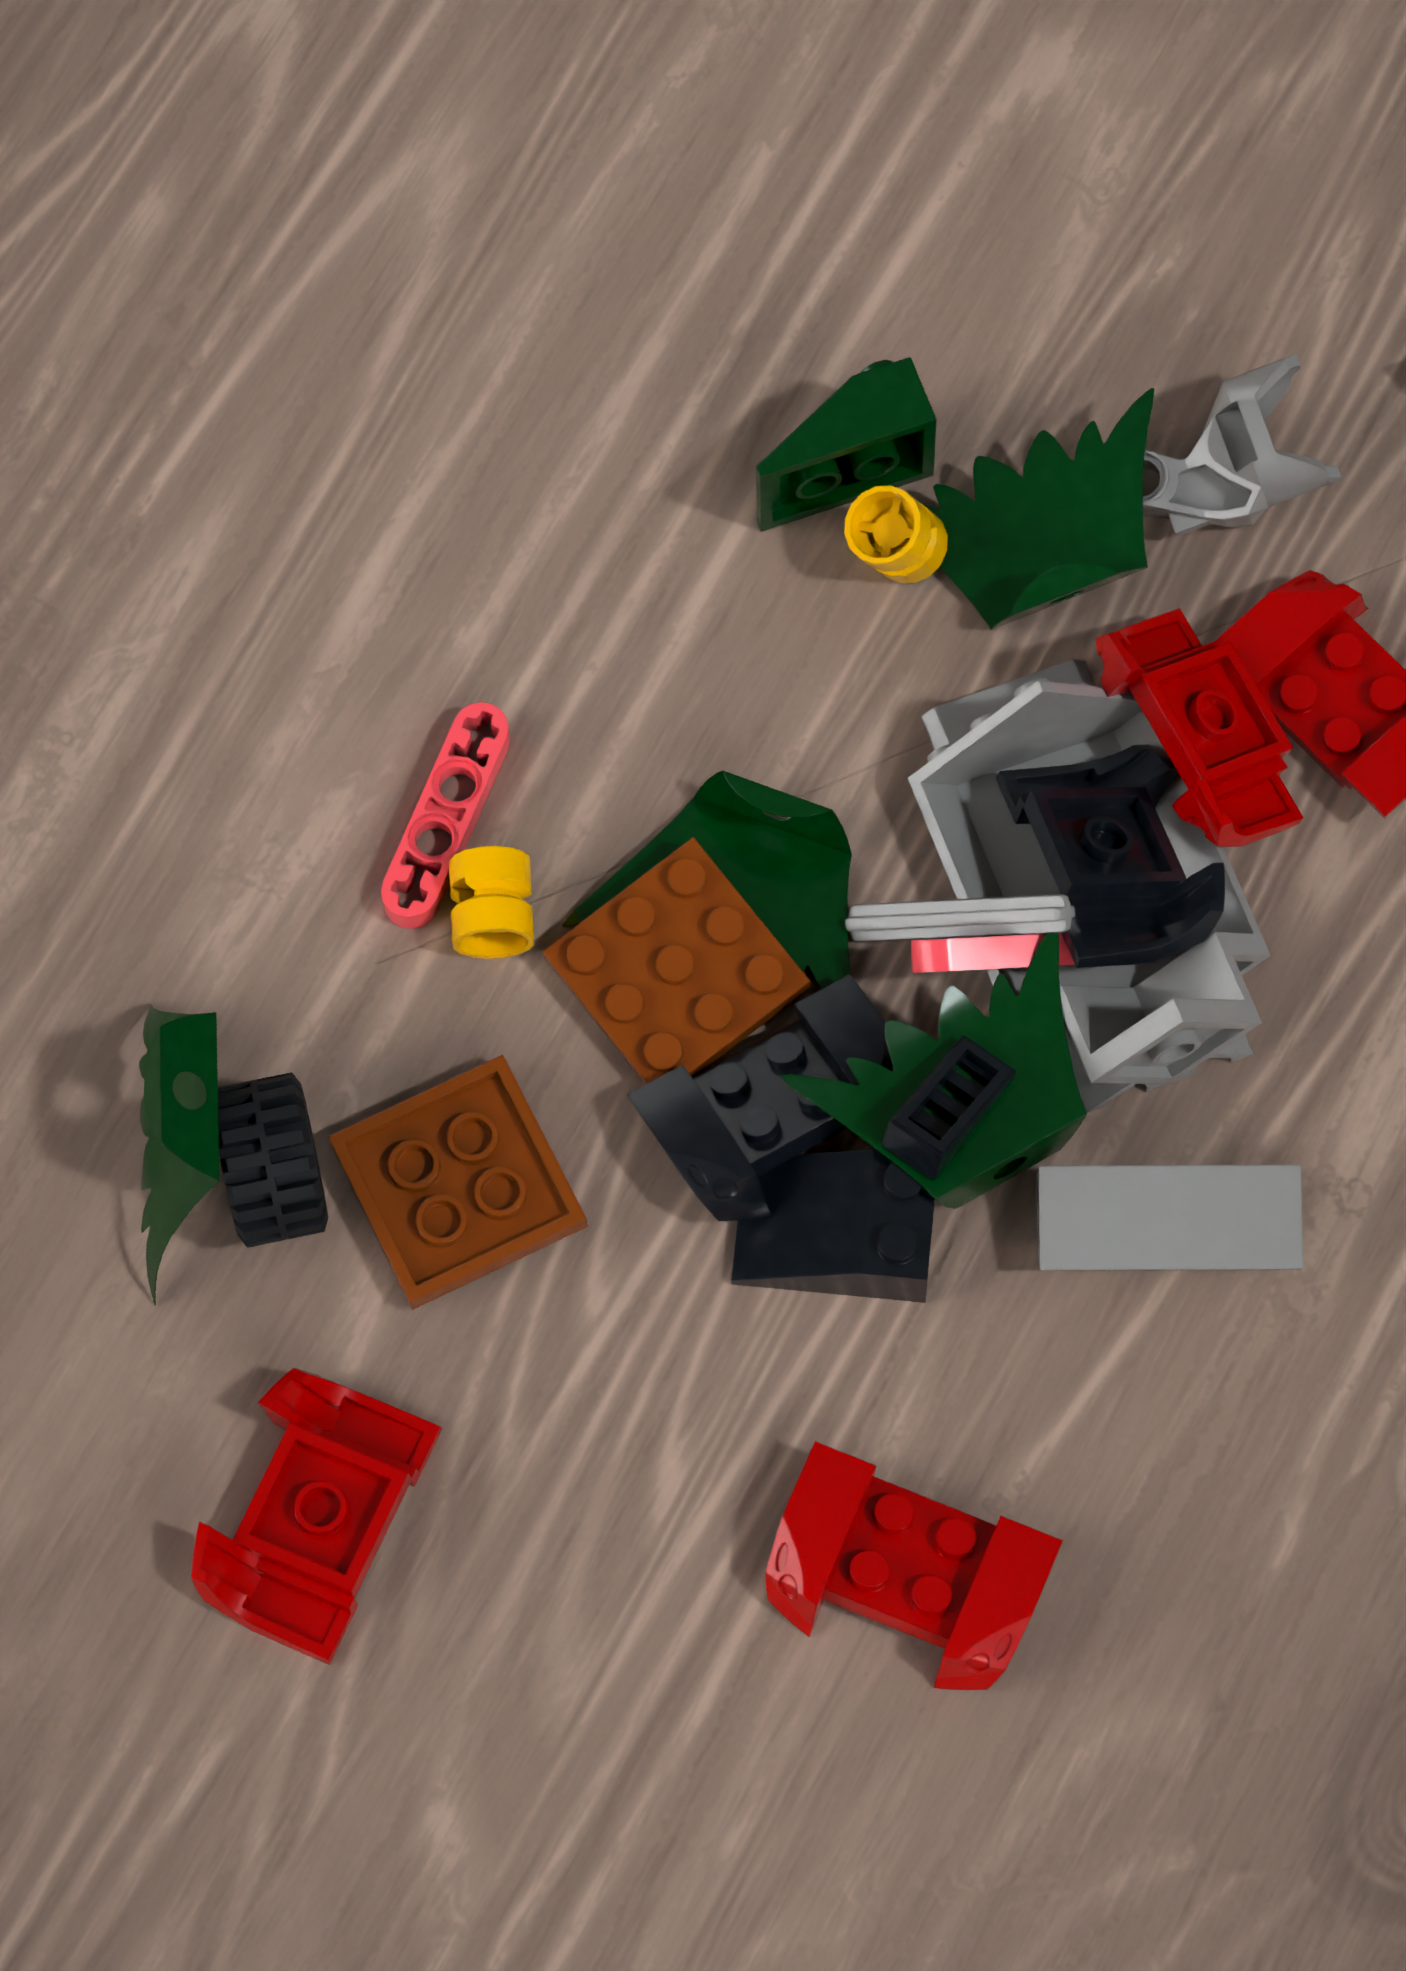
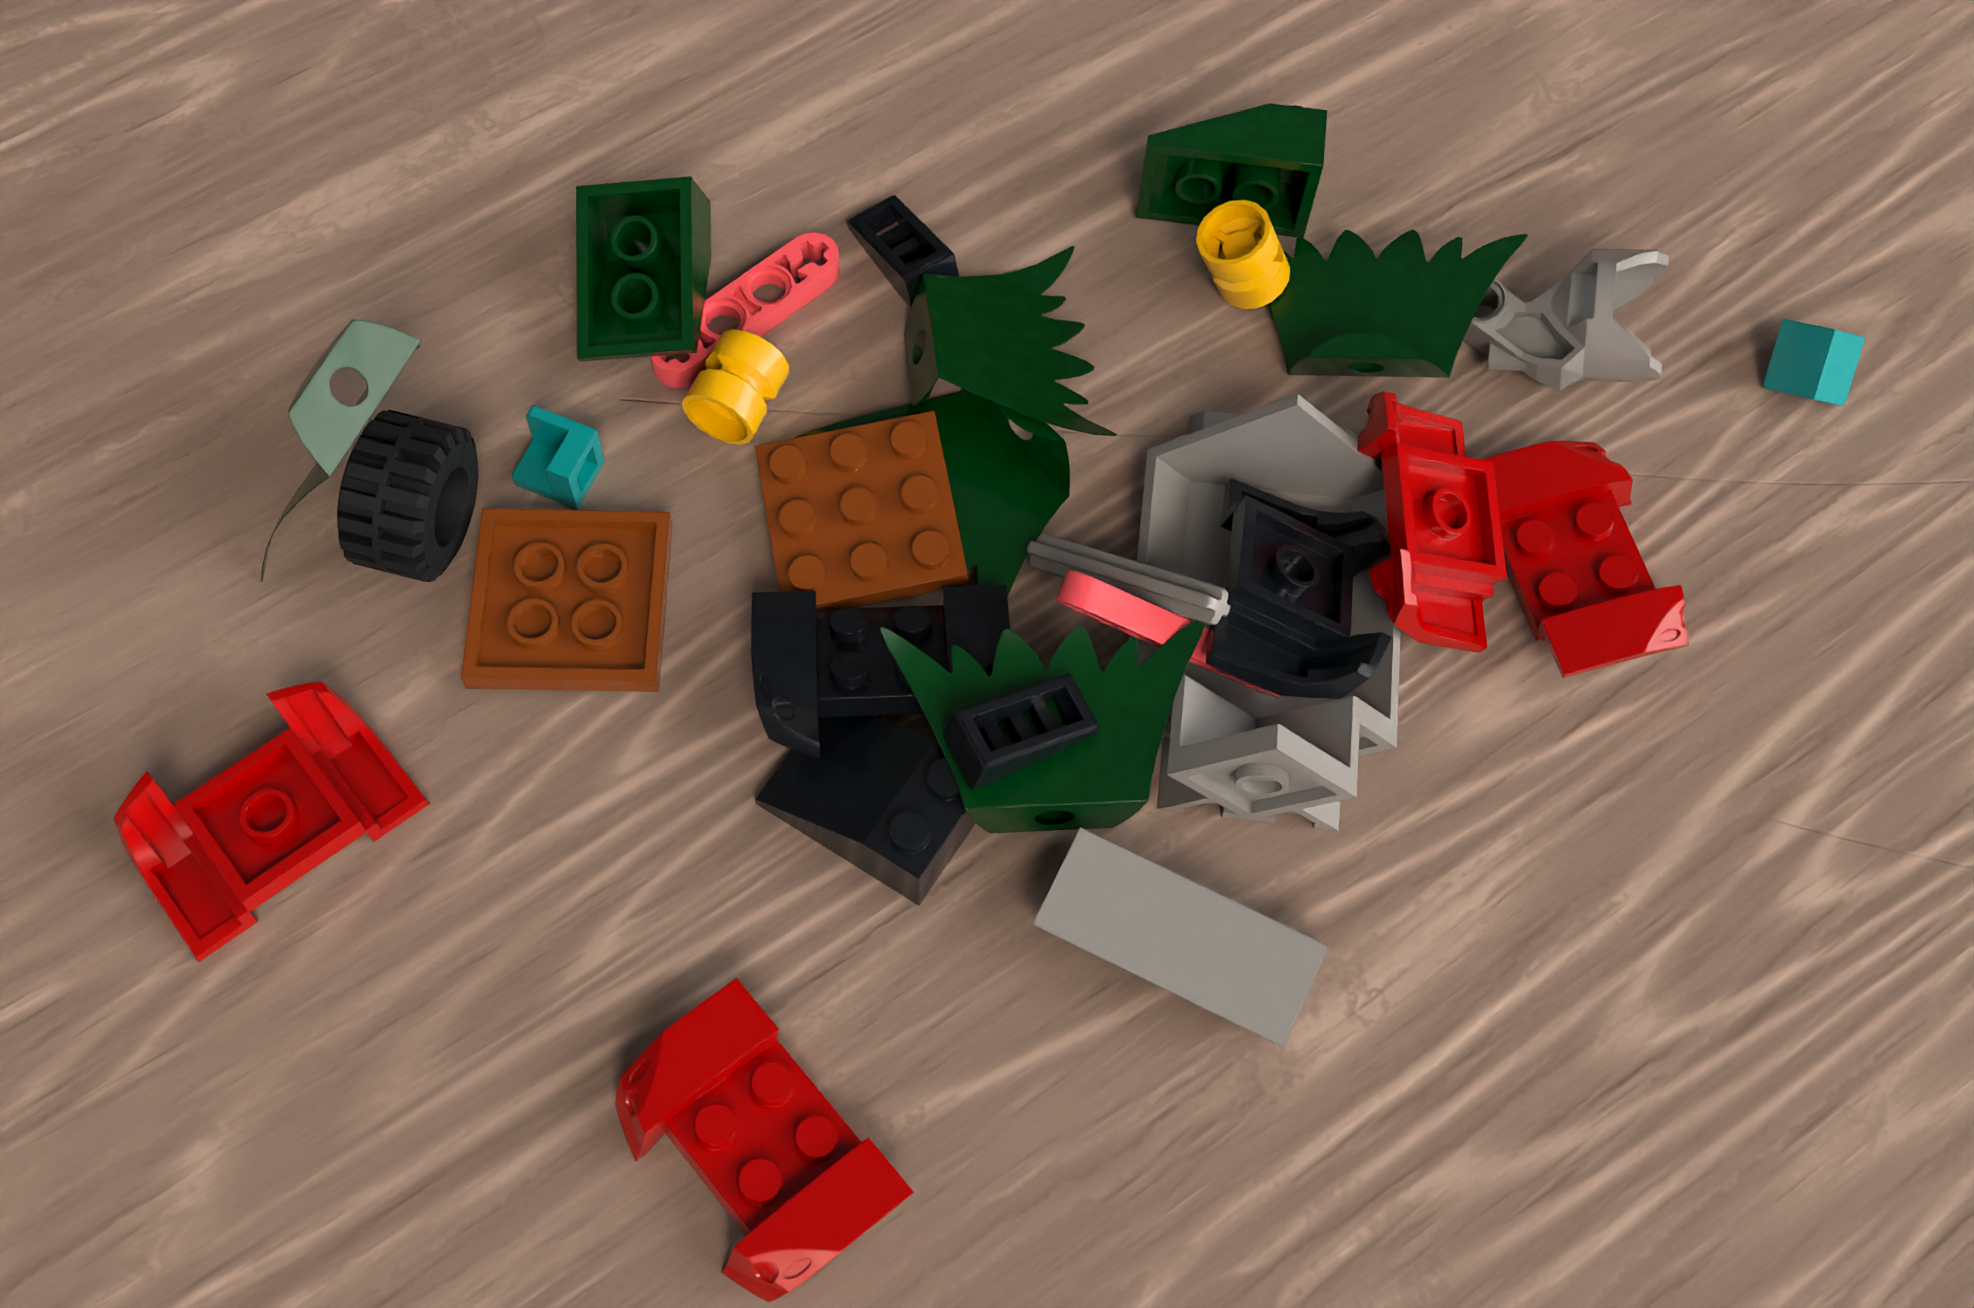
camera: 20 degrees right, 5 degrees down
(335, 831) = (641, 267): none -> dark green slope
(361, 1053) = (559, 459): none -> teal panel
(593, 700) = (919, 241): none -> black slope
(710, 738) = (997, 344): none -> dark green piece

